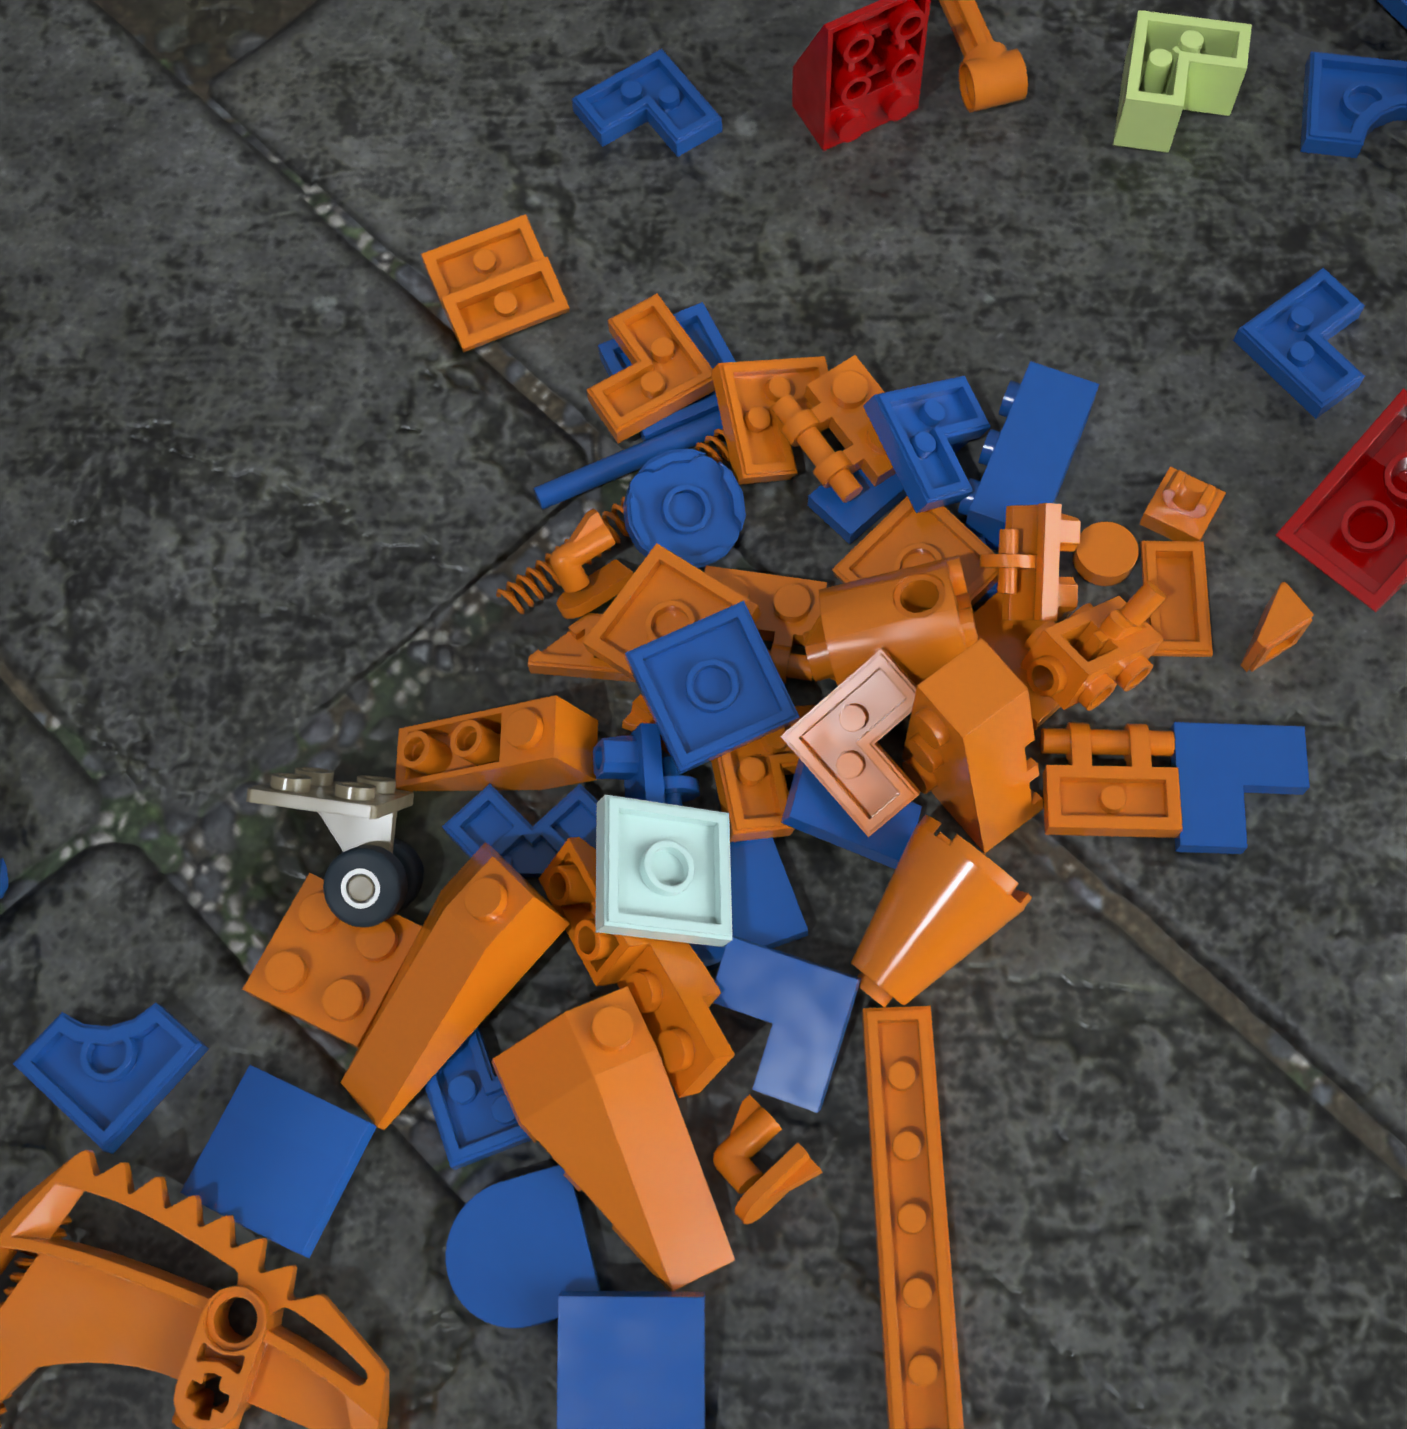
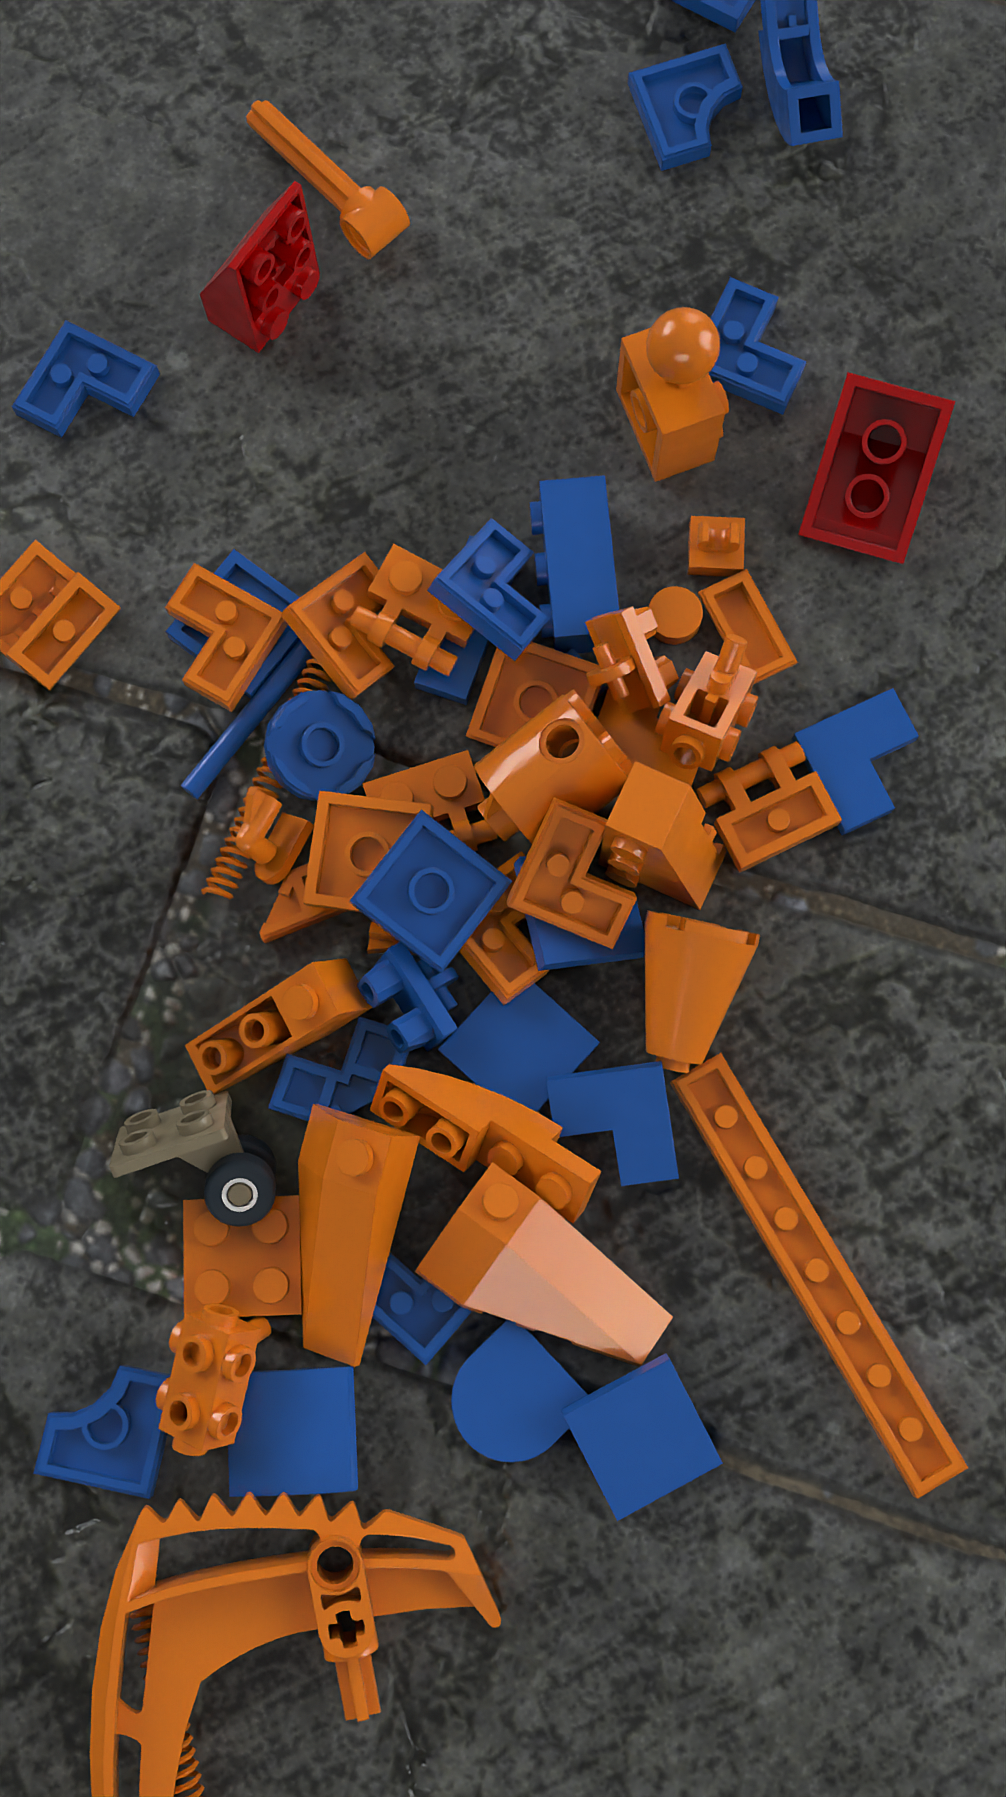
camera: 30 degrees left, 10 degrees up
(228, 1056) = (208, 1377): none -> orange brick
(663, 872) = (471, 1059): light aqua plate -> none
(749, 1134) = (633, 1245): orange piece -> none
(1177, 67) = (524, 145): yellowish green brick -> none
(1207, 330) = (670, 391): none -> orange brick
(1278, 628) = (835, 615): orange slope -> none

